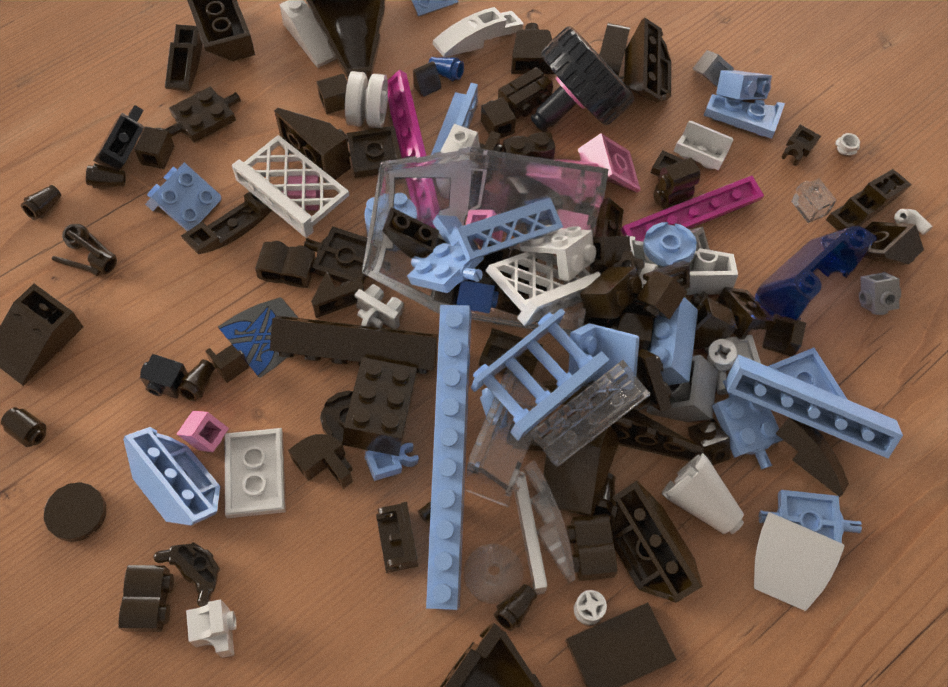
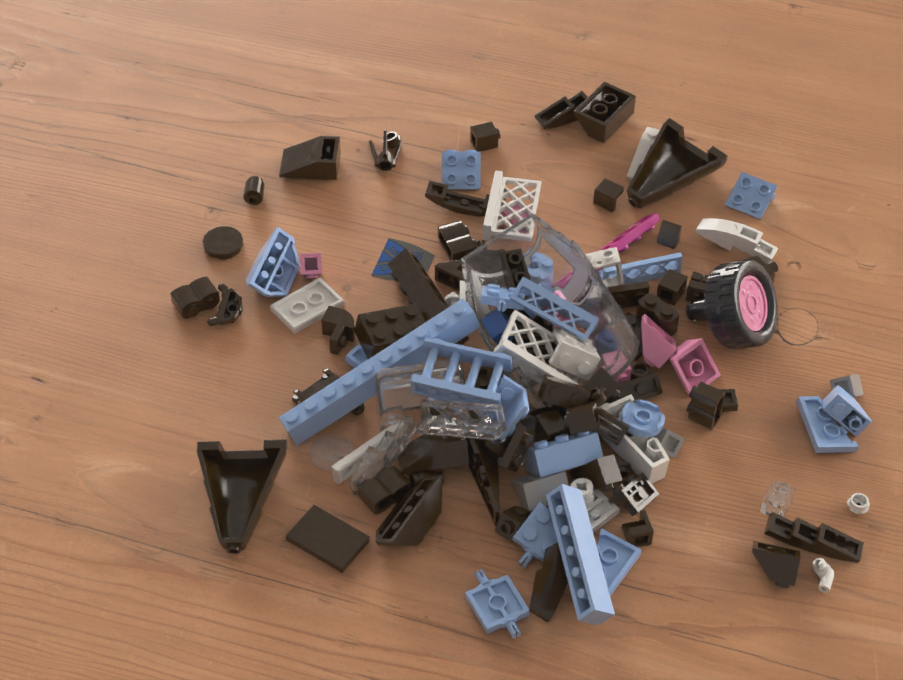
camera: 60 degrees right, 15 degrees down
(41, 202) = (400, 112): dark brown cone -> none
(102, 176) = (442, 127): dark brown cone -> none
(120, 140) = (463, 118): black hinge -> none
(162, 376) = (332, 230): black brick -> none
(195, 382) = (343, 245): dark brown cone -> none
(202, 114) = (532, 144): dark brown plate -> none
(212, 627) = (199, 334): white brick -> none
(228, 362) = (366, 254): dark brown panel -> none
(316, 141) = (554, 202): dark brown slope -> none
(366, 99) = (613, 209): white wheel -> none
(371, 148) = (587, 235): dark brown plate -> none
(449, 67) = (691, 241): blue cone -> none
(513, 609) = (315, 469): dark brown cone -> none
(592, 602) = (345, 502): white wheel -> none
(614, 45) = (801, 321): dark brown beam -> none
(648, 63) = (807, 347): dark brown wedge -> none
(701, 208) = (708, 436): dark pink plate -> none
(703, 145) = (762, 412): white bracket -> none
(705, 496) = (466, 528): white cone -> none
(794, 561) = (459, 605): white sticker -> none
(796, 285) = (704, 514): clear blue windscreen -> none
(801, 143) = (828, 471): dark brown plate -> none
(880, 293) = (725, 571): light grey brick -> none

